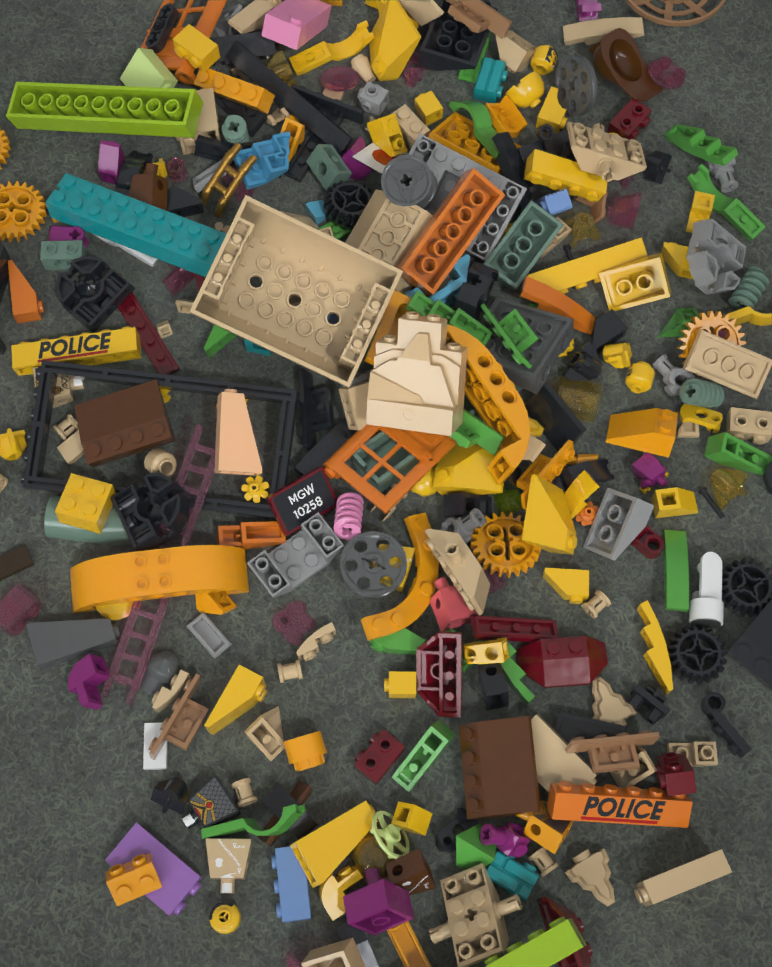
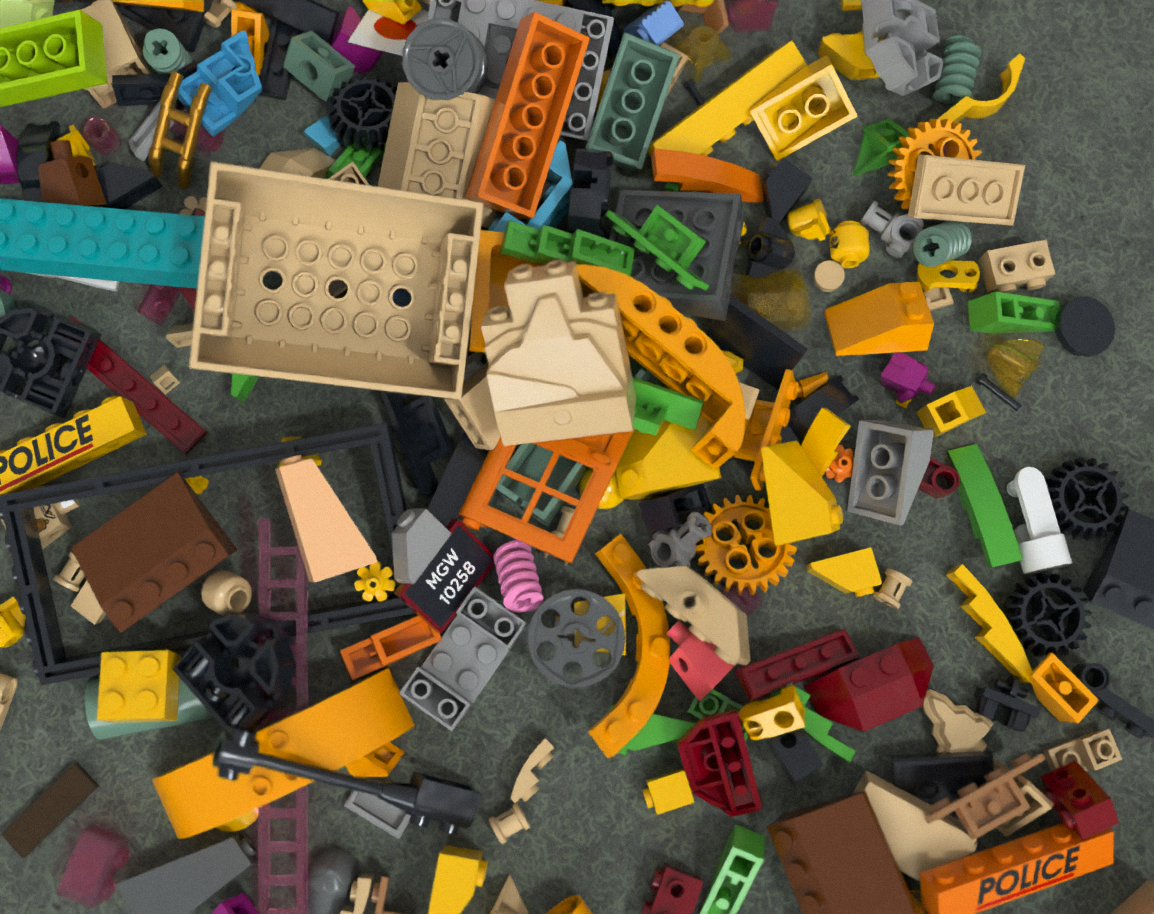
camera: 20 degrees left, 10 degrees up
(240, 632) = (423, 798): none -> black bar
(290, 470) = (416, 543): none -> light grey slope
(297, 622) = (496, 749): clear pink plate -> none
(508, 501) = (731, 482): clear neon green slope -> none
(620, 394) = (828, 276): none -> tan tile
(687, 701) = (1061, 691): none -> light orange slope

